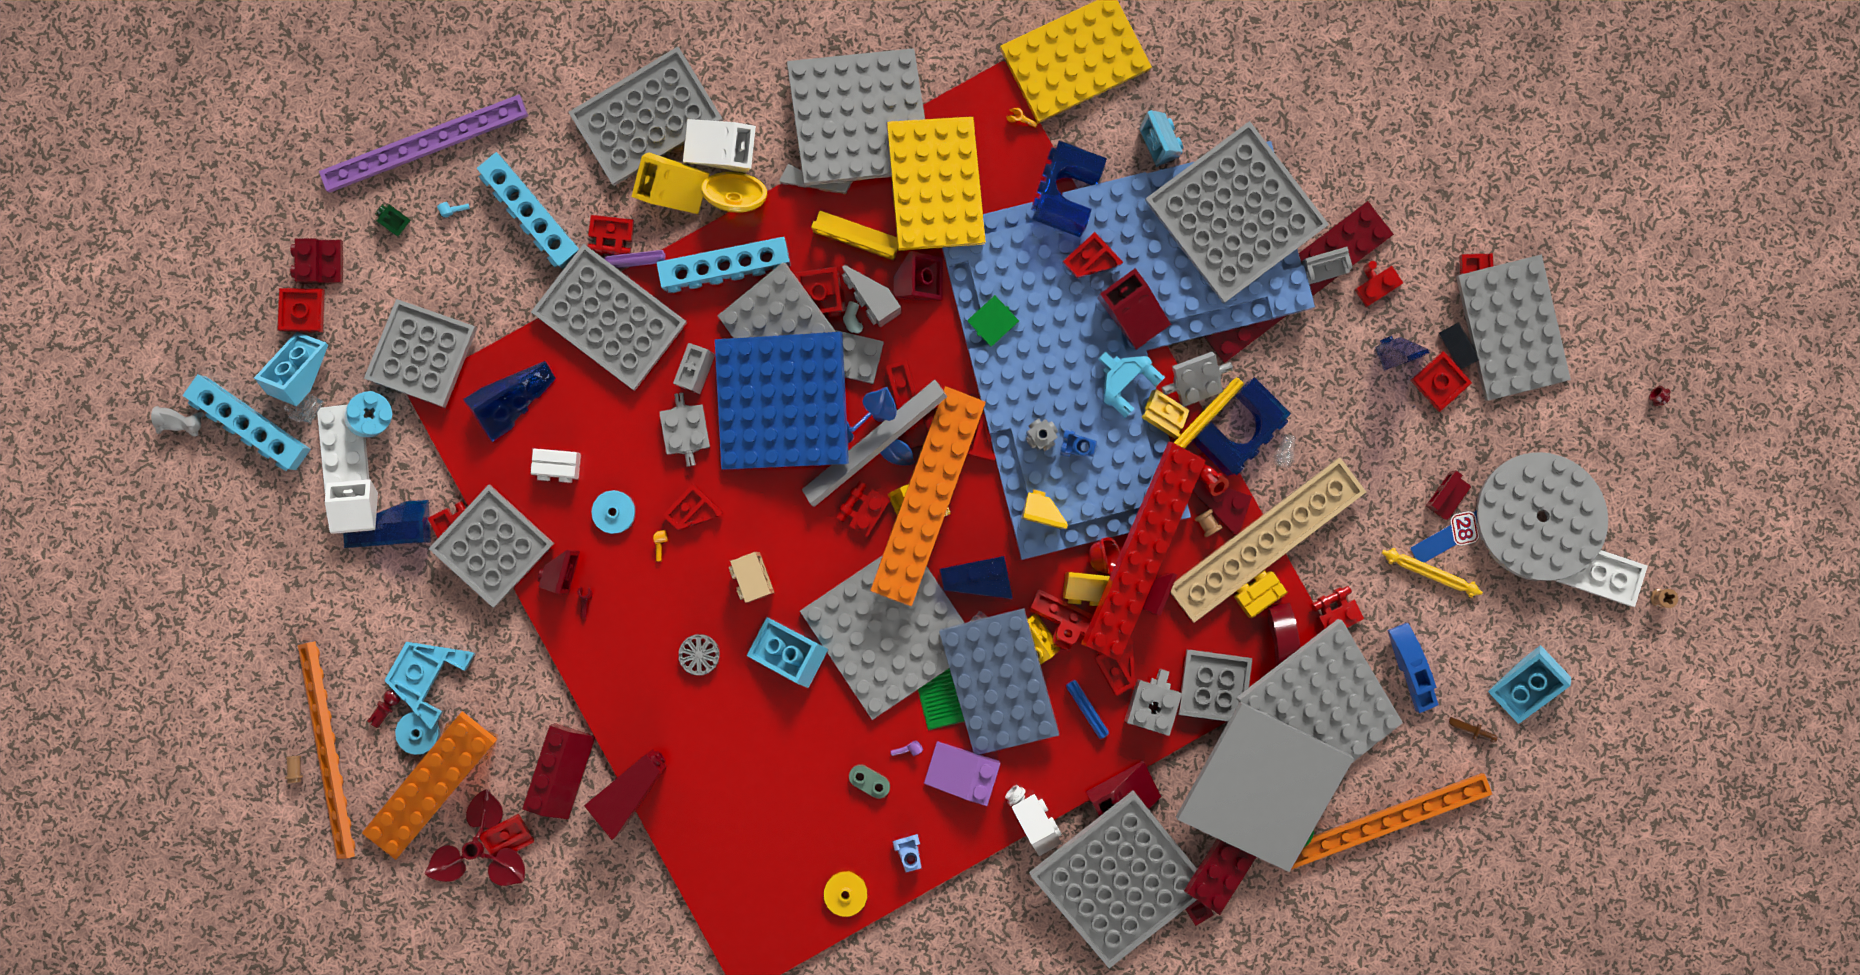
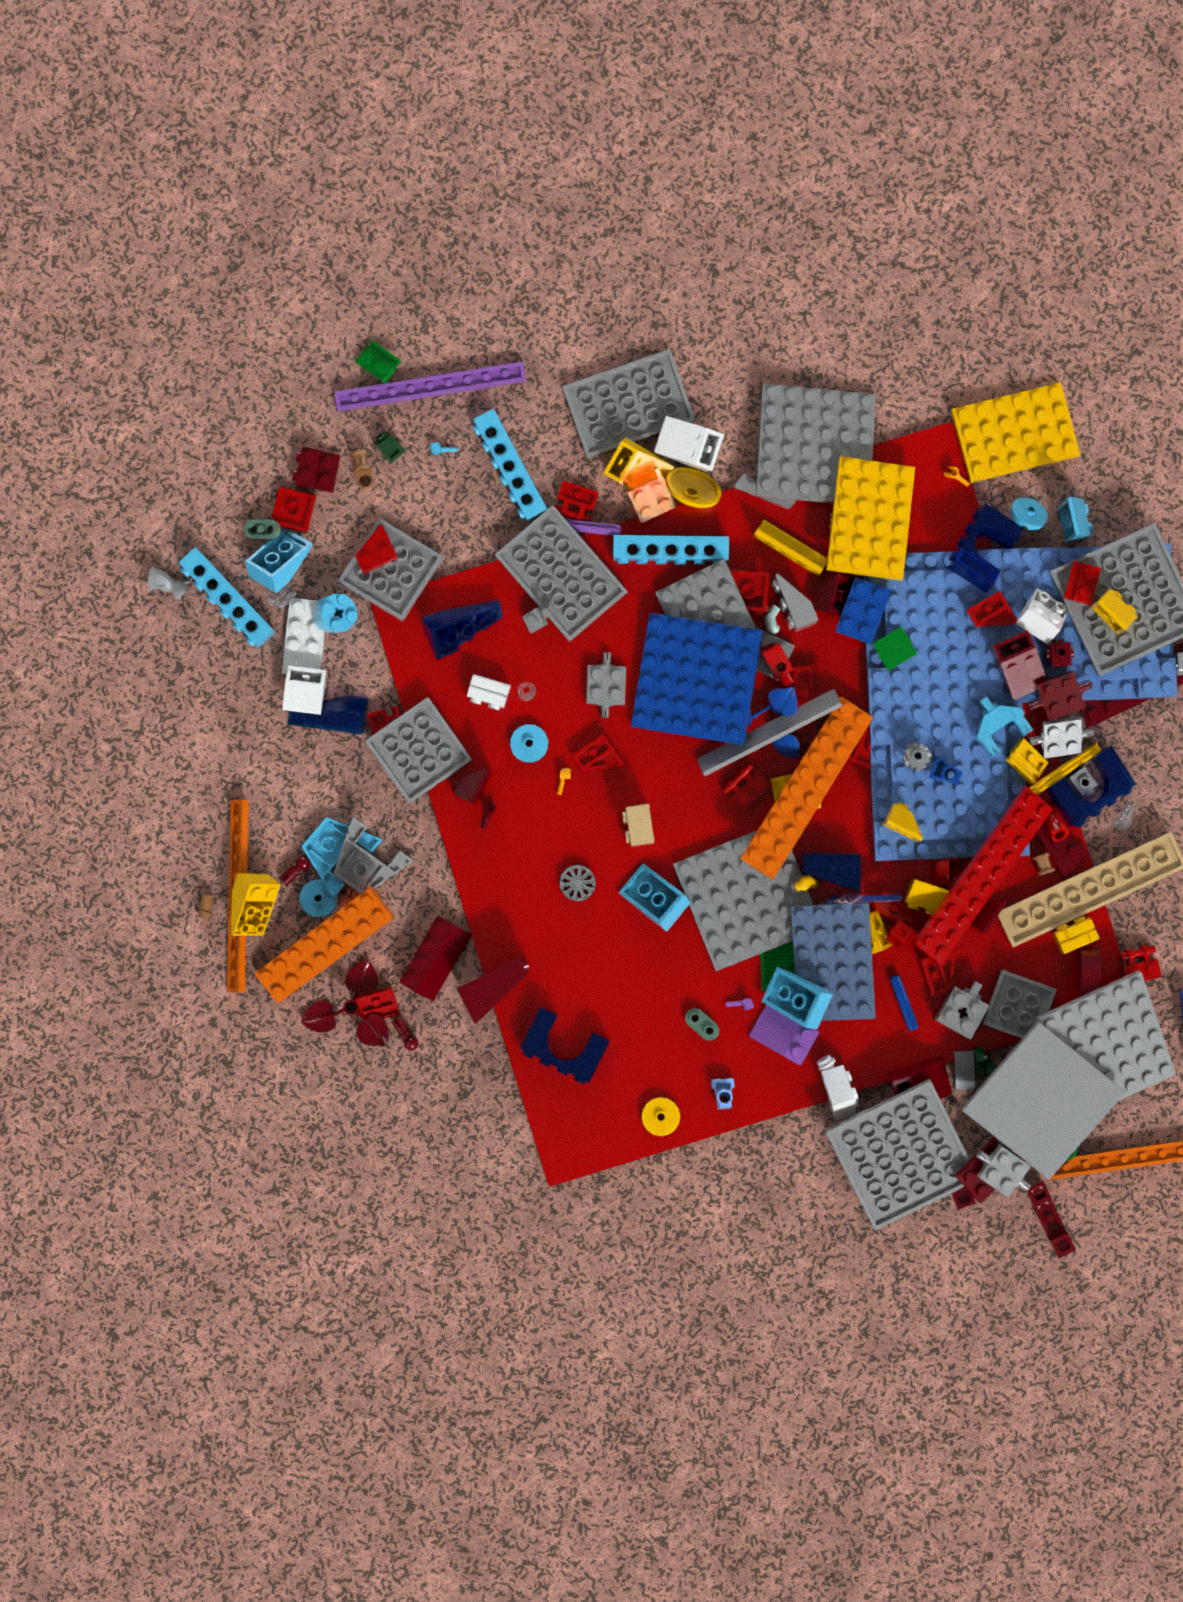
camera: 15 degrees right, 0 degrees up
(269, 339) = (263, 529): none -> sand green plate
(341, 756) = (252, 903): none -> yellow slope
(360, 128) = (378, 361): none -> green plate
(367, 248) = (362, 469): none -> medium nougat connector
(399, 336) = (376, 551): none -> red wing
(455, 689) = (360, 867): none -> light grey wing
(551, 870) = (410, 1042): none -> dark red pin
(591, 373) = (537, 618): none -> light grey plate
(603, 455) = (526, 696): none -> clear cone
(686, 210) = (649, 494): none -> clear orange brick
(691, 844) = (581, 1067): none -> clear blue arch
(694, 368) = (626, 634): light grey hinge -> none
(859, 357) = (772, 656): none -> red torso
(949, 286) = (863, 611): none -> blue plate
(950, 600) = (805, 882): none -> yellow arm
(967, 732) = (797, 998): none -> medium azure slope
(1006, 606) = (853, 898): none -> blue sticker
(1109, 142) = (1028, 513): none -> medium azure plate
(1148, 250) = (1042, 616): none -> white slope
(1169, 768) = (964, 1070): none -> light grey slope
(1173, 294) = (1054, 658): none -> dark red brick
(1184, 203) = (1082, 583): none -> red plate
(1186, 333) = (1060, 695): none -> dark red plate
(1188, 759) = (983, 1066): none -> dark green bracket
(1223, 423) = (1076, 779): none -> light grey brick
(1226, 226) = (1114, 611): none -> yellow slope
(1237, 874) = (1003, 1170): none -> light grey plate
(1300, 914) = (1050, 1219): none -> dark red slope

